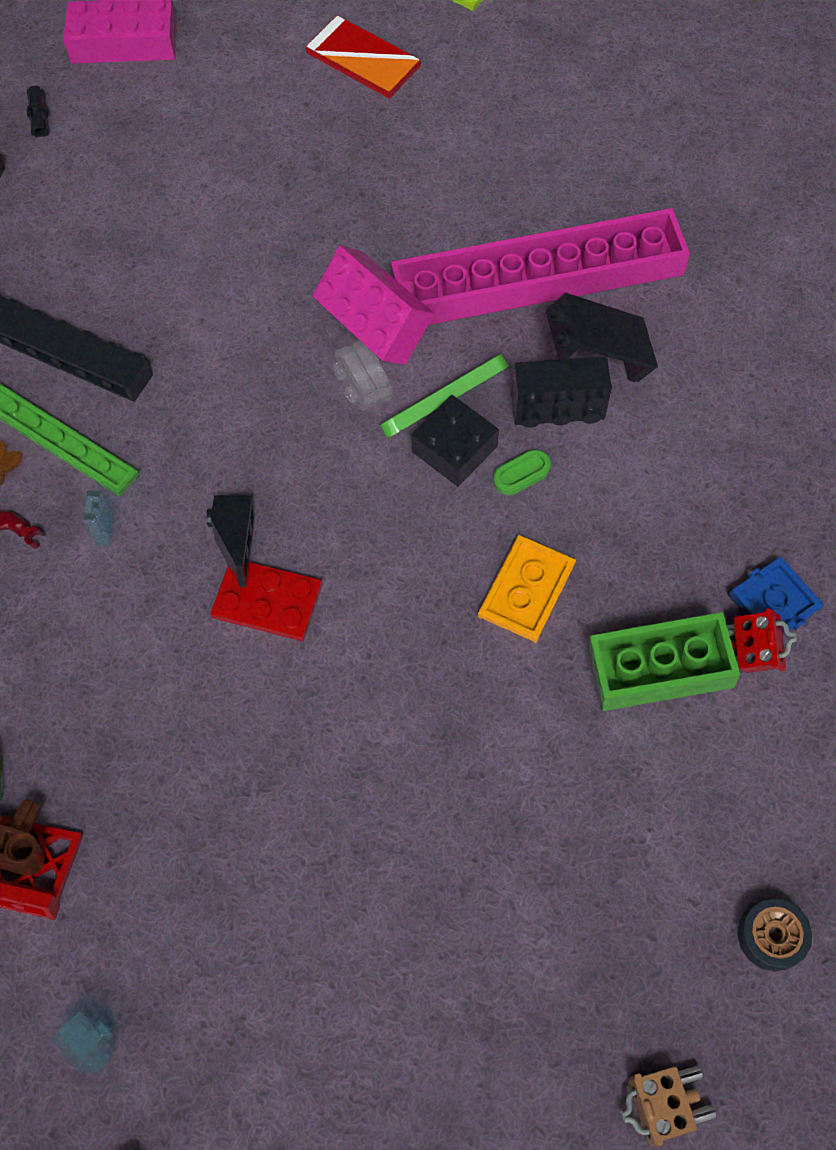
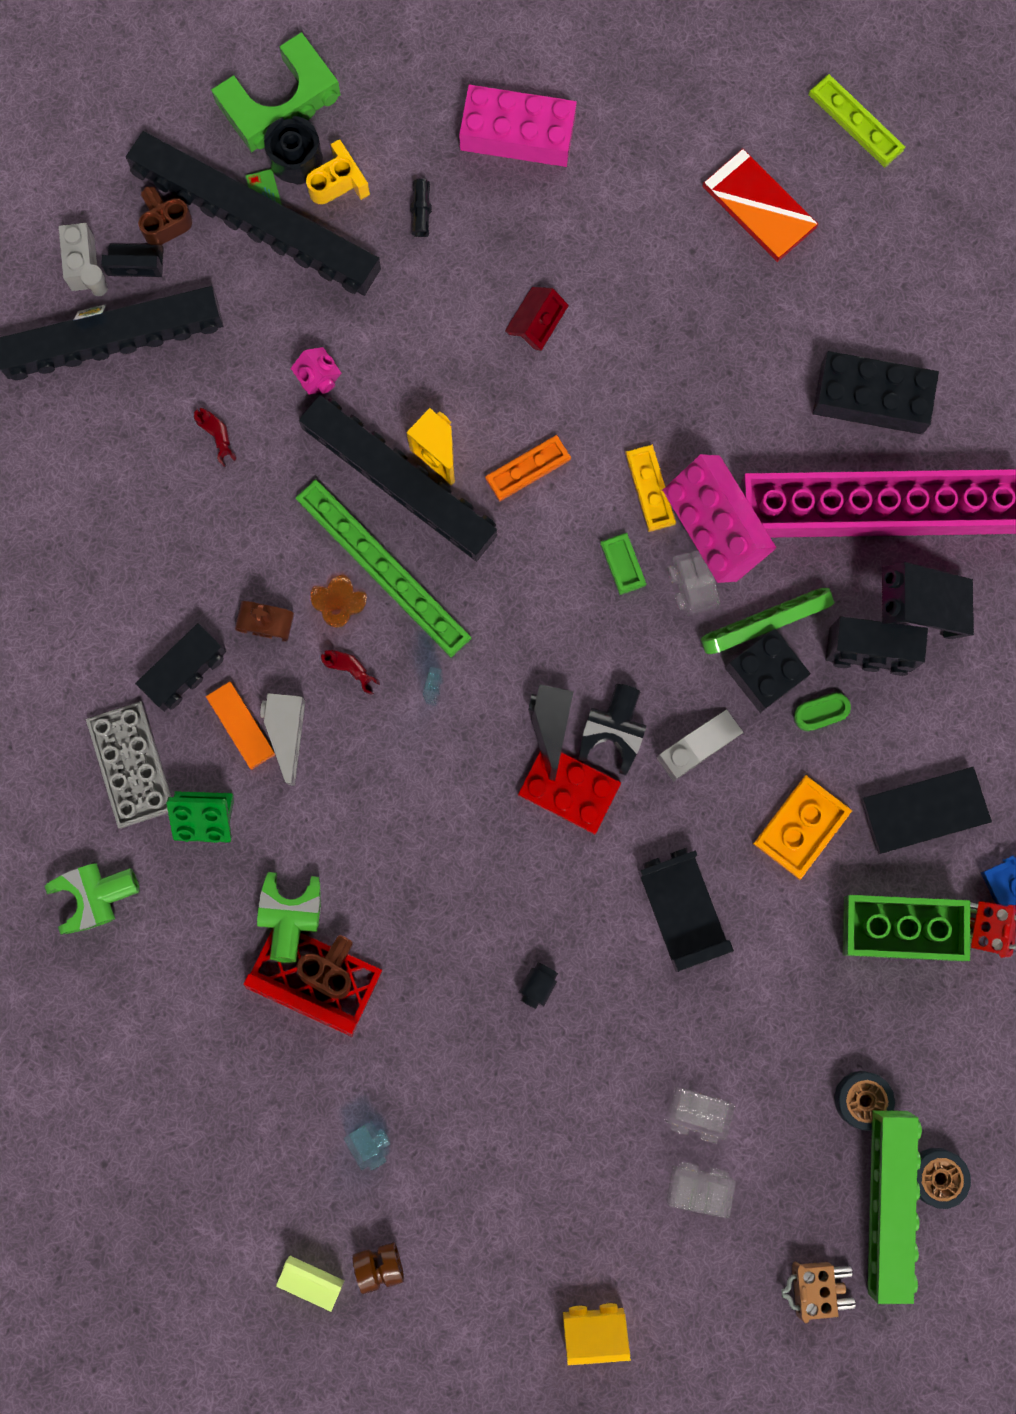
camera: 10 degrees right, 15 degrees up
(70, 295) = (433, 443): none -> yellow slope
(165, 177) = (537, 316): none -> dark red panel
(174, 308) = (528, 468): none -> orange tile
(264, 812) = (538, 985): none -> black brick
(287, 375) = (623, 563): none -> bright green tile
(302, 305) = (649, 487): none -> yellow tile
(304, 527) = (615, 726): none -> black connector
(396, 528) = (699, 745): none -> light grey slope
(415, 697) = (684, 910): none -> black panel
(478, 919) = (700, 1114): none -> clear brick
(497, 1008) = (701, 1190): none -> clear brick
(507, 180) = (875, 392): none -> black brick
(654, 543) = (926, 810): none -> black tile
(665, 844) = (850, 1091): none -> wheel
(730, 980) = (893, 1207): none -> bright green brick

